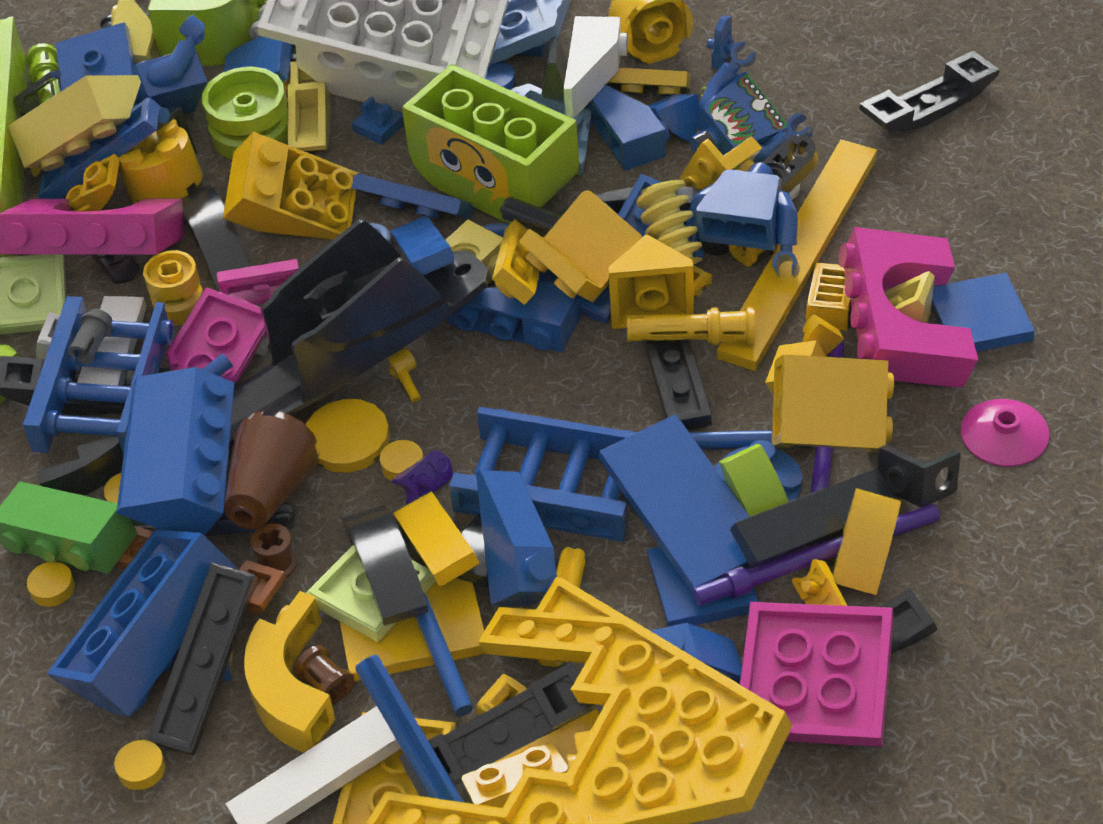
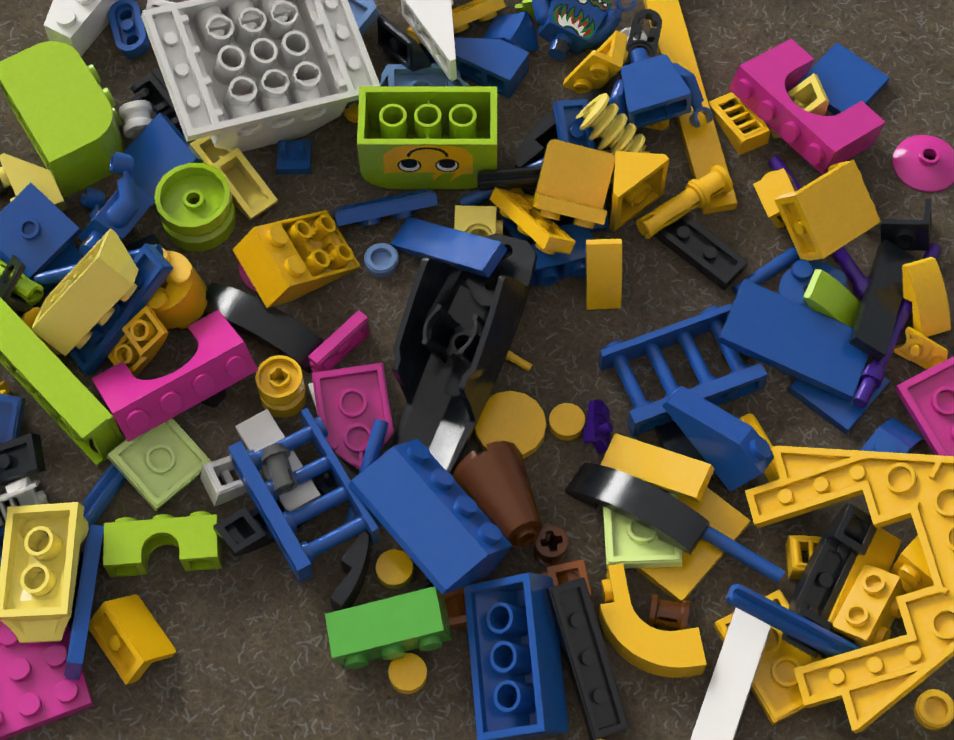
camera: 40 degrees left, 15 degrees up
(547, 343) = (603, 274): none -> yellow slope
(823, 332) = (770, 161): yellow tile -> none

